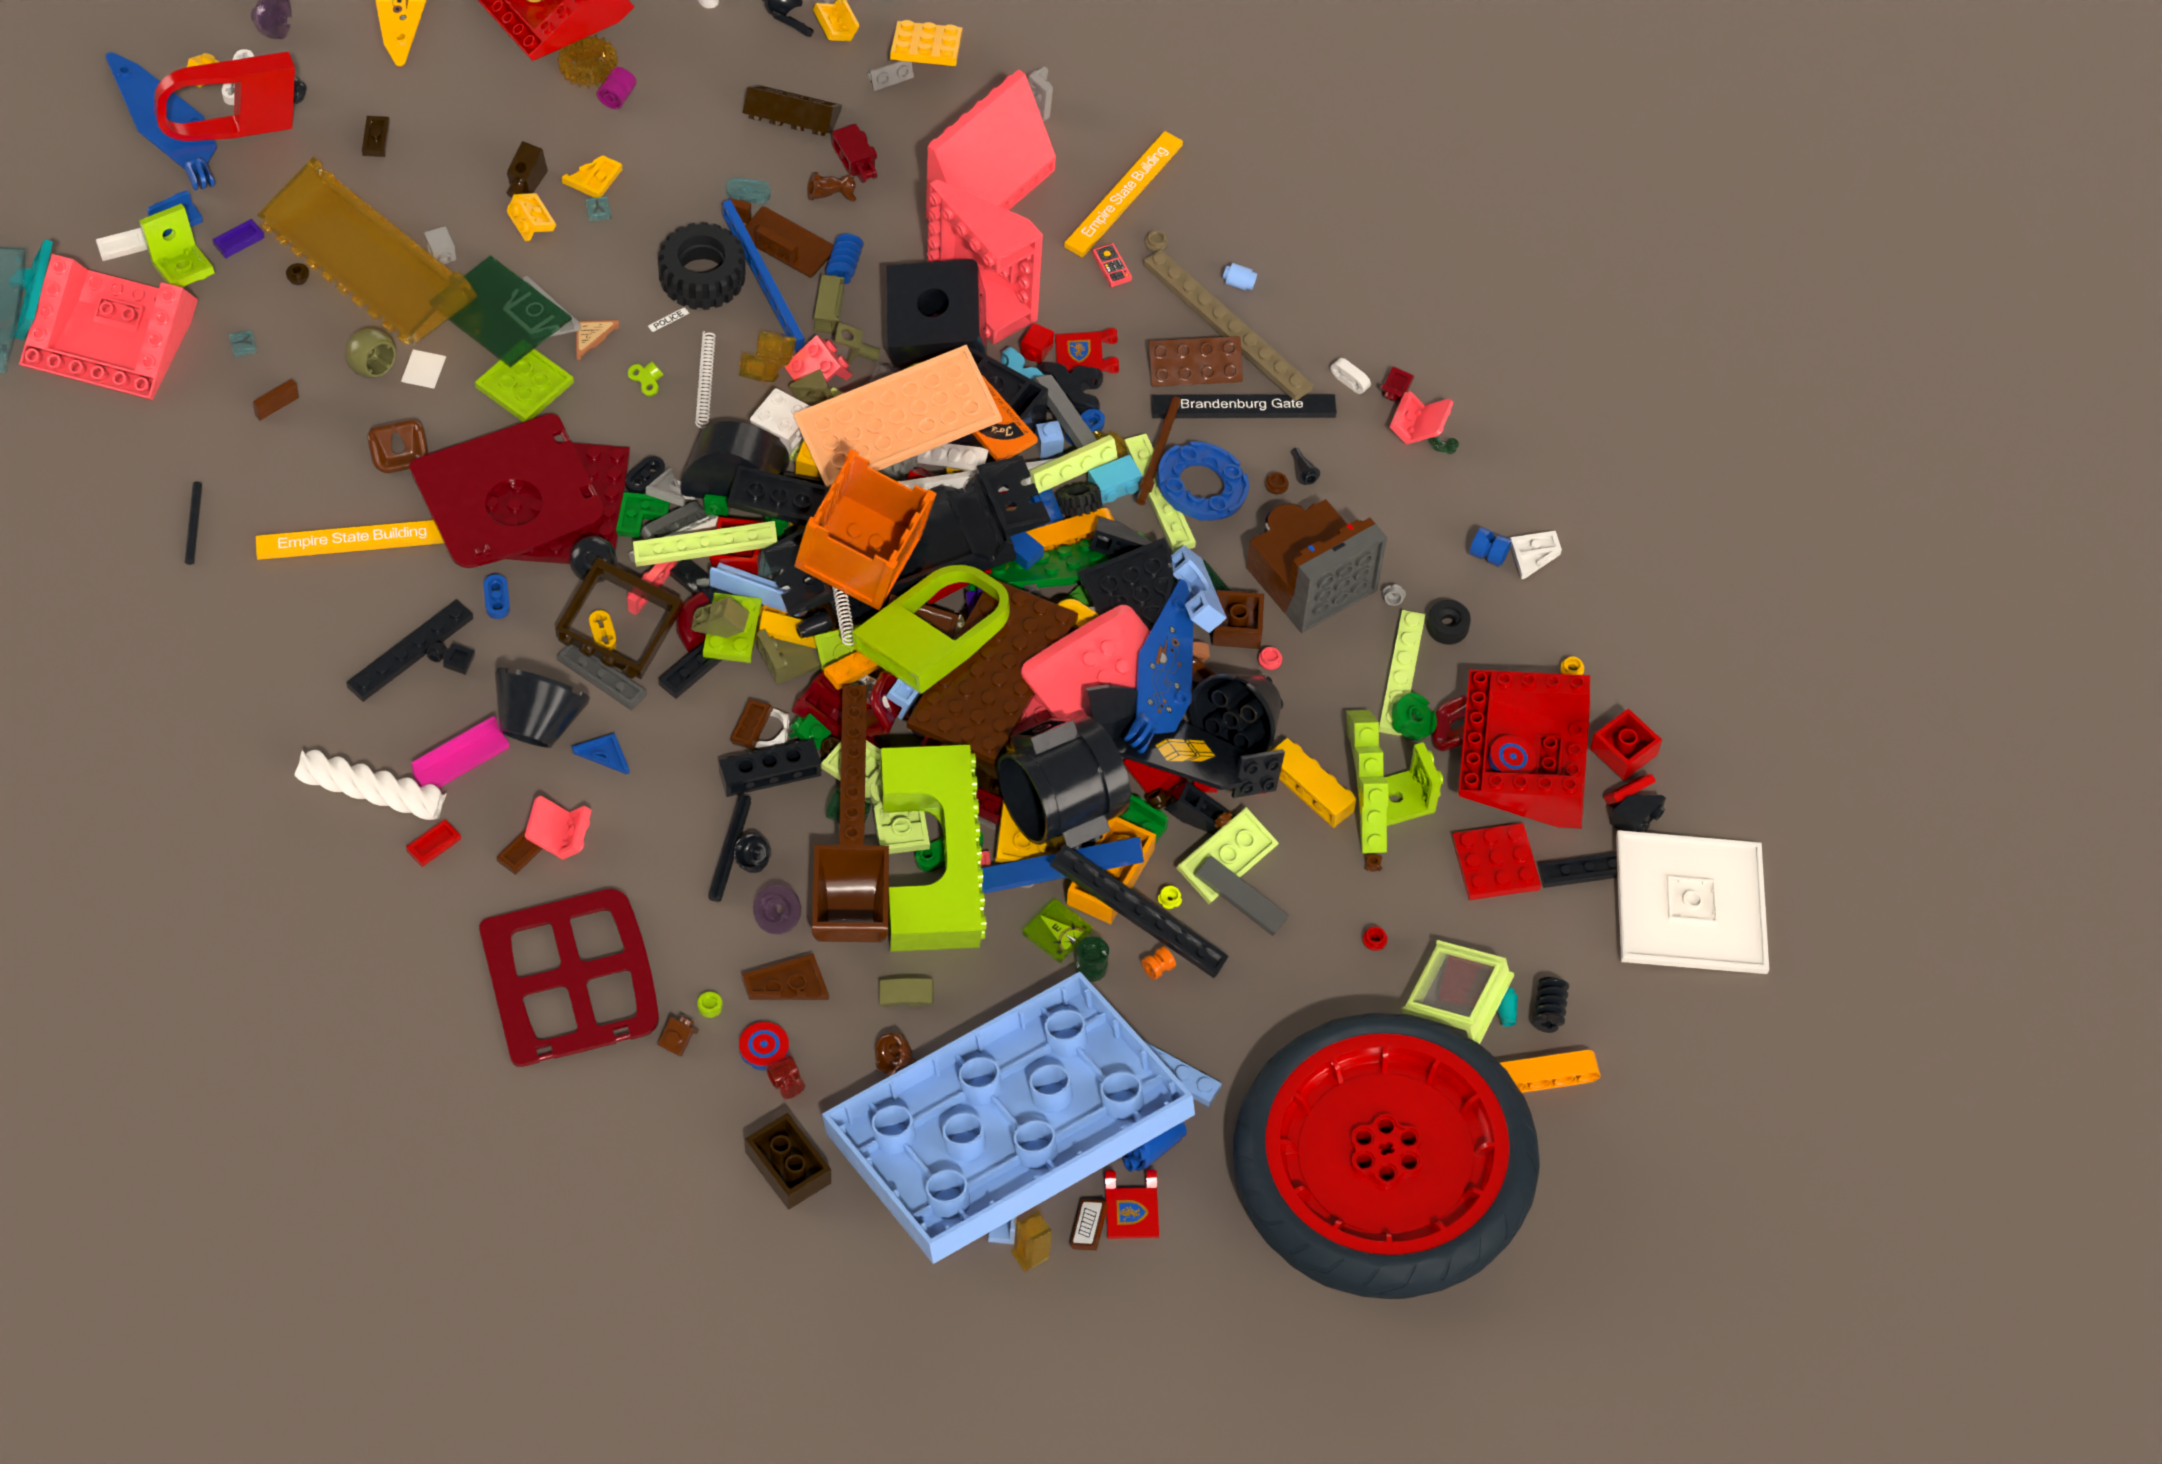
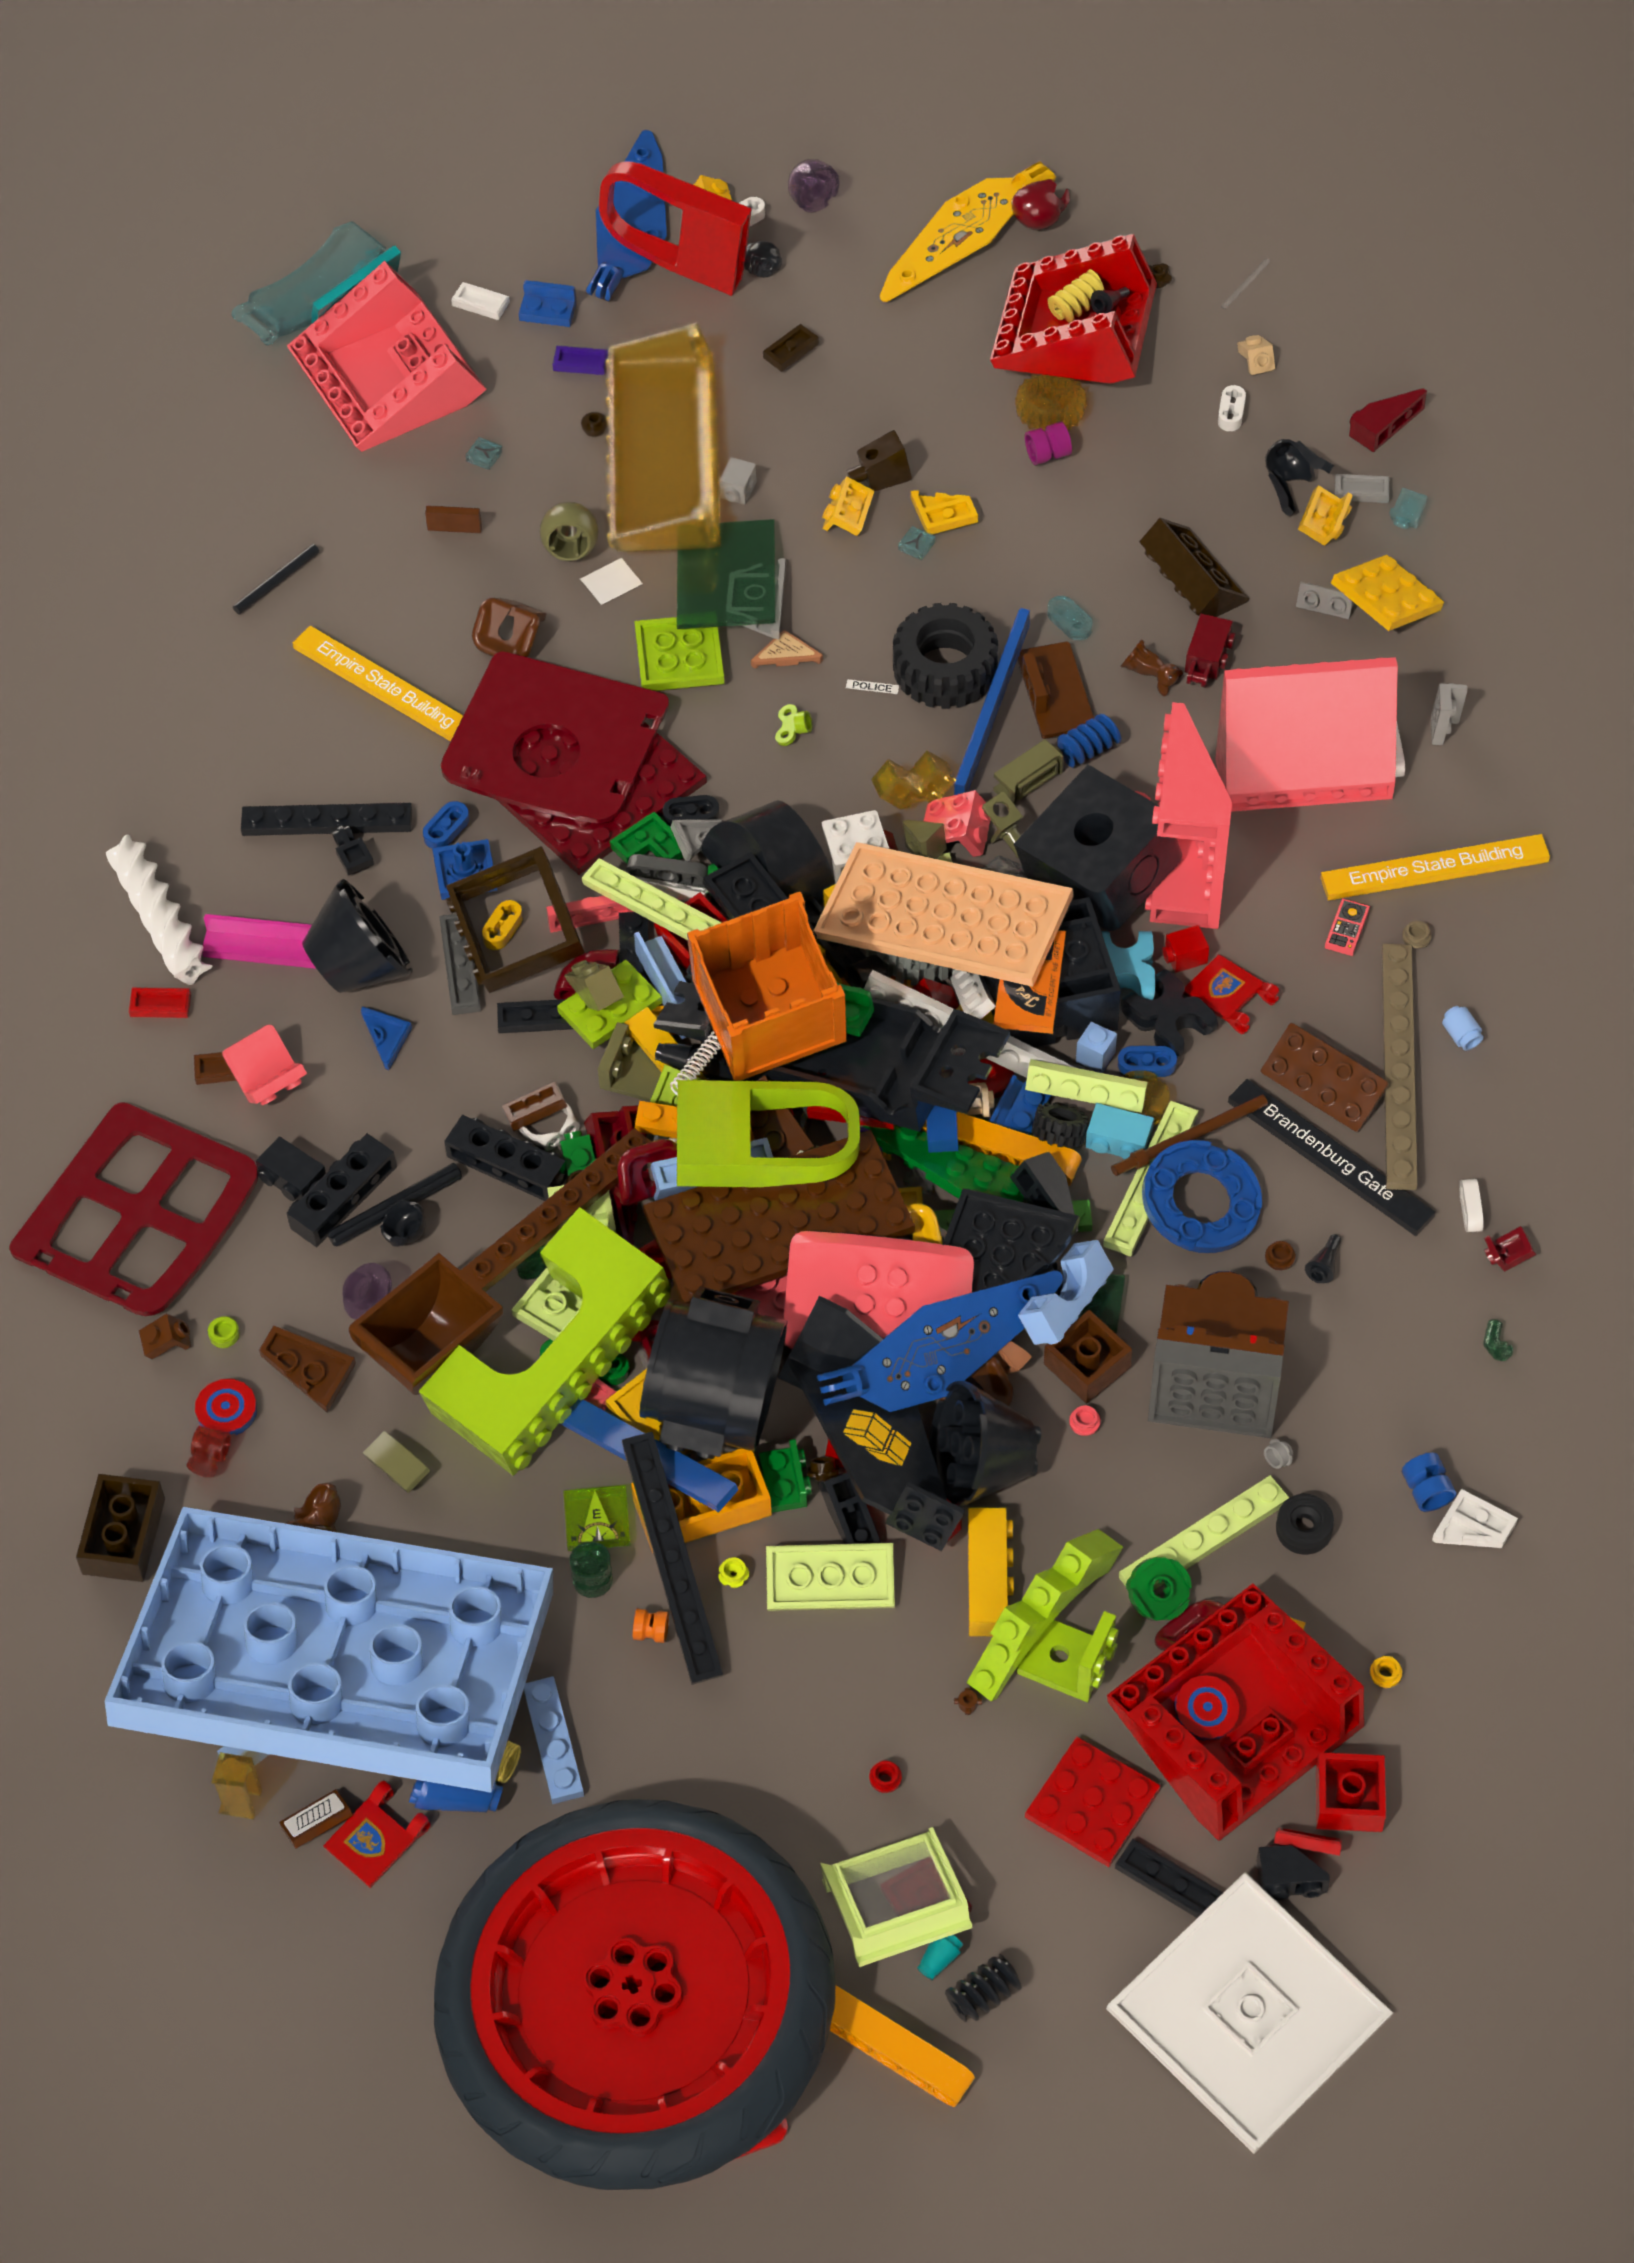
camera: 50 degrees right, 0 degrees up
(175, 255) = (508, 337): lime bracket -> none
(538, 602) = (460, 862): none -> blue plate
(586, 552) = (563, 847): black cylinder -> none
(645, 876) = (288, 1169): none -> black brick
(689, 829) = (339, 1204): none -> black brick
(705, 379) = (823, 777): white piece -> none
(743, 209) = (1040, 629): reddish brown plate -> none
(1066, 413) = (1131, 1027): dark grey tile -> none
(1223, 819) = (856, 1537): reddish brown piece -> none
(1241, 895) = (798, 1626): dark grey tile -> none
(1419, 421) = (1492, 1297): coral bracket -> none

